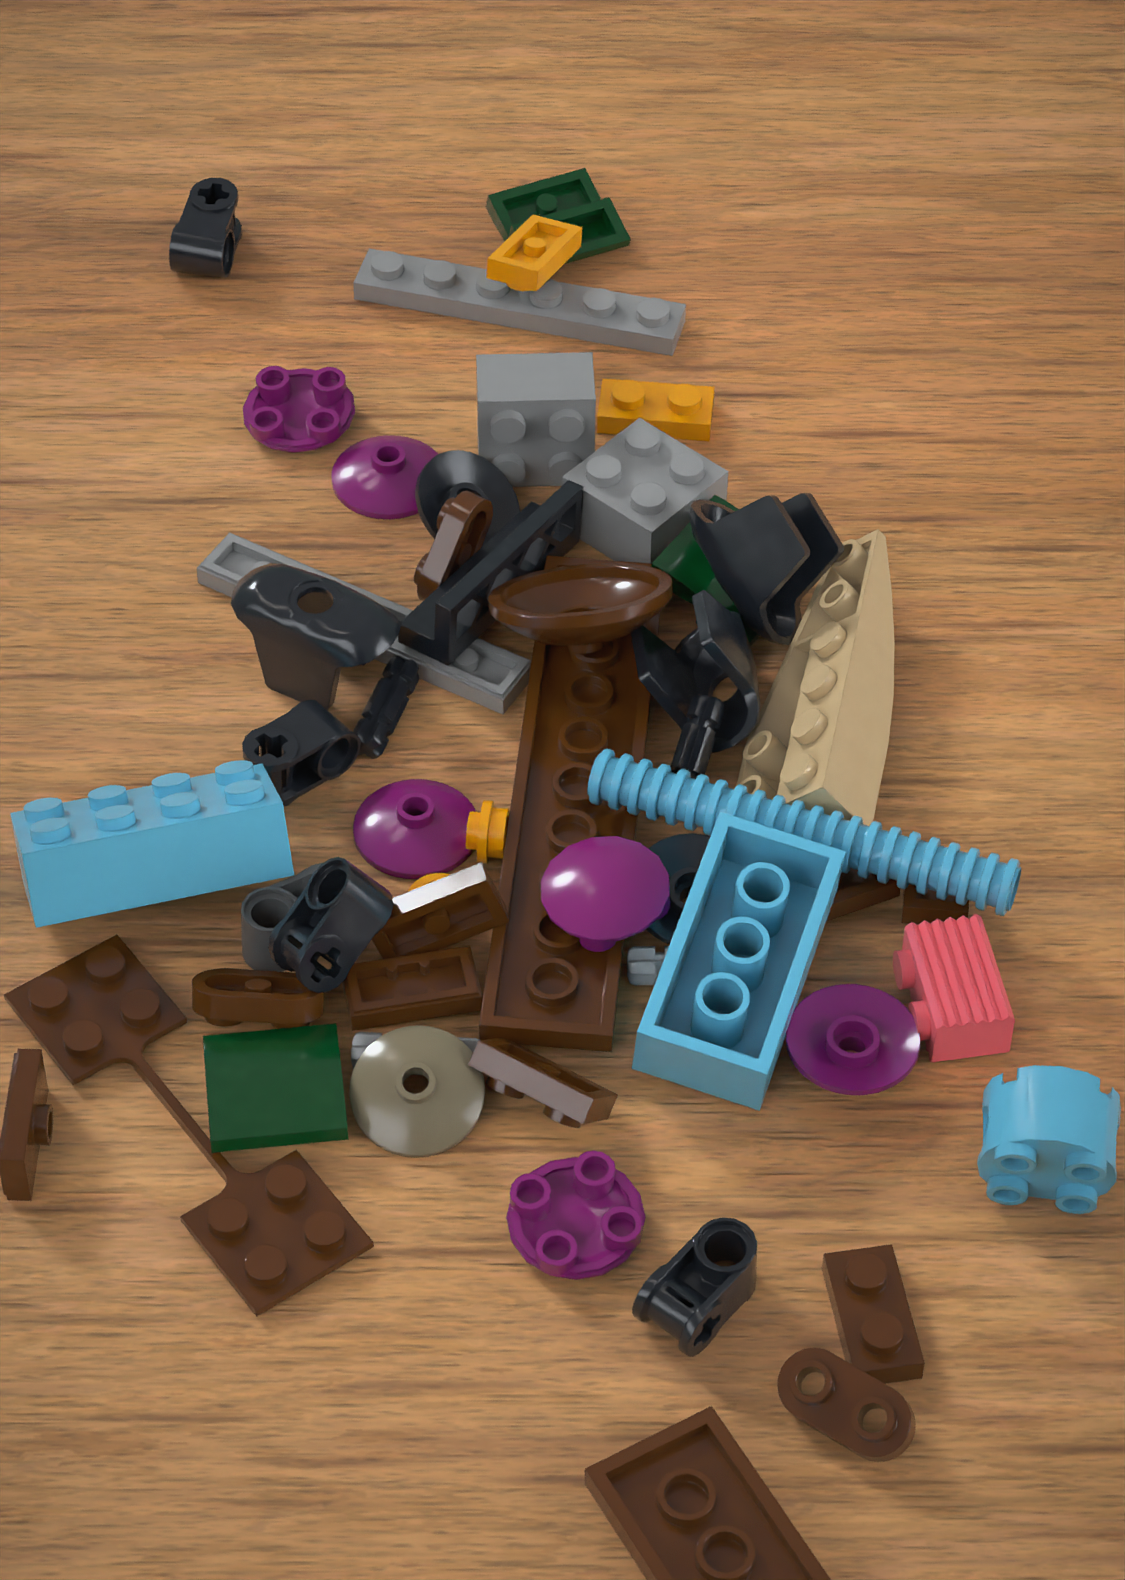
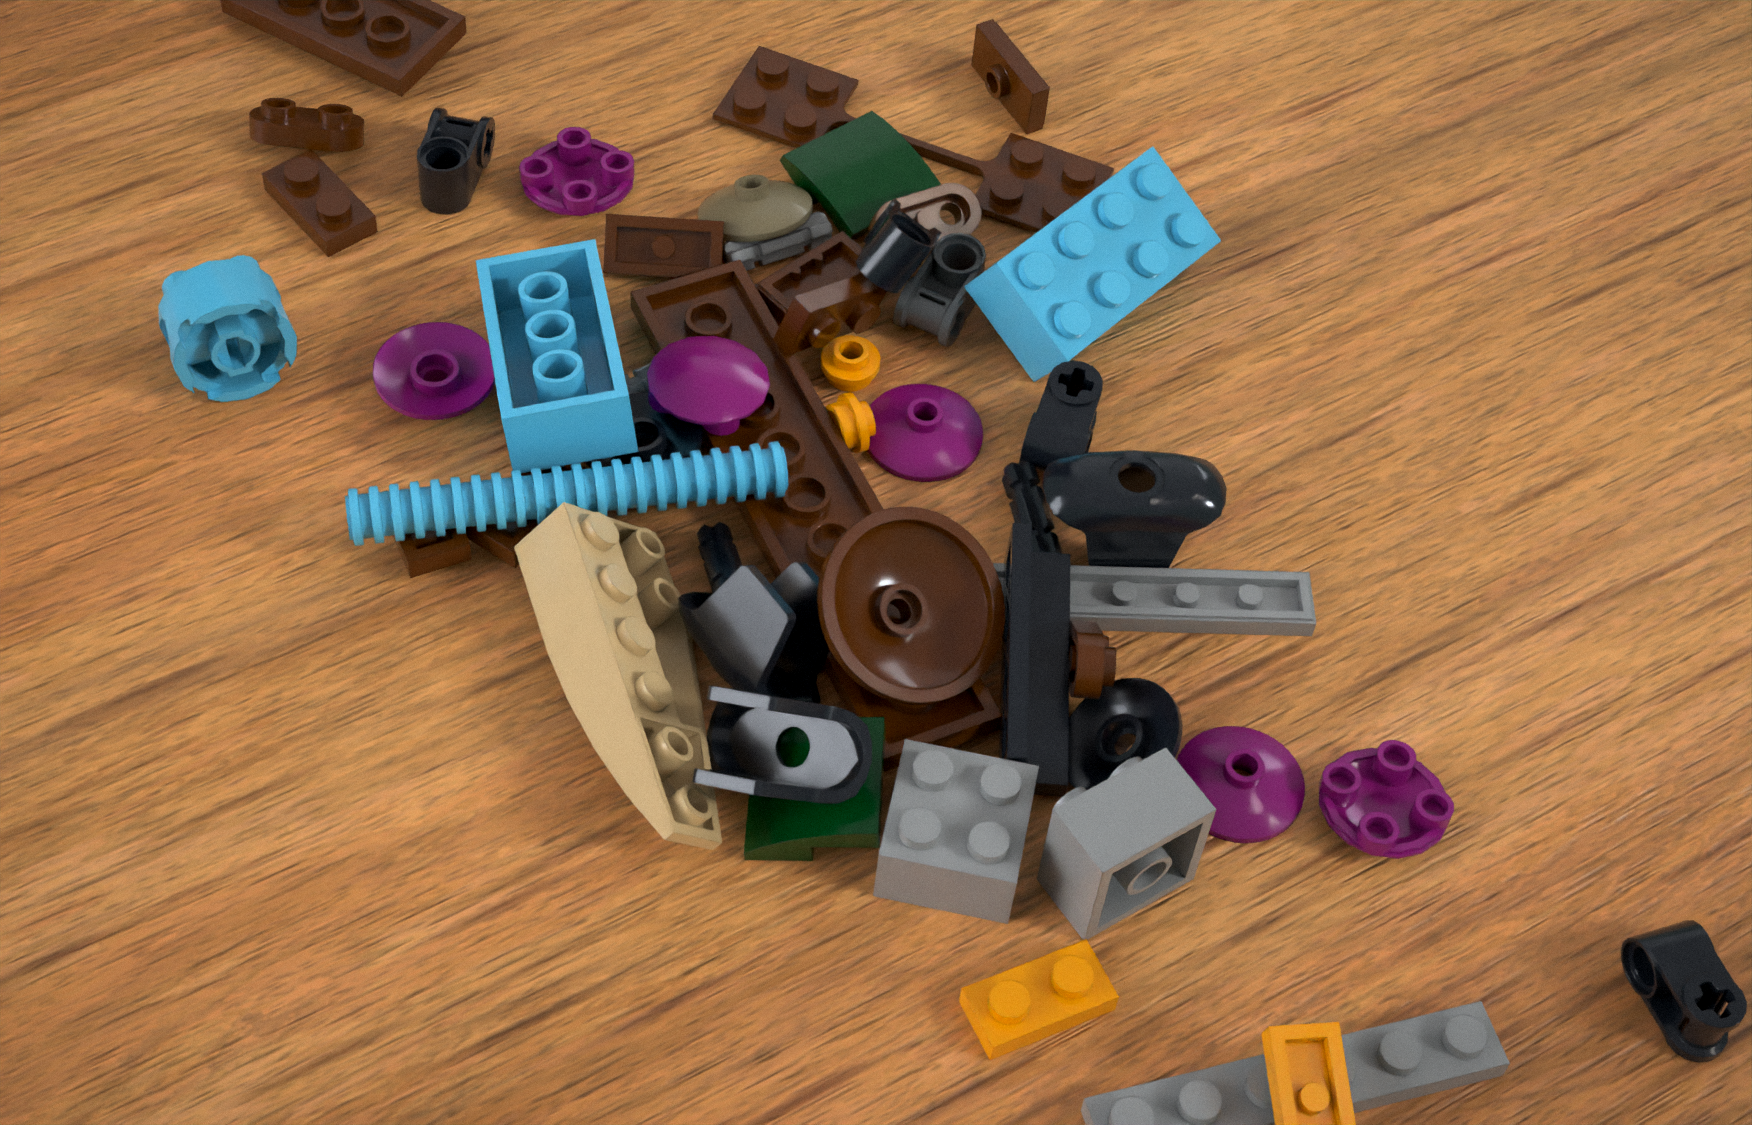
camera: 145 degrees right, 5 degrees up
(954, 988) = (364, 440): coral brick -> none

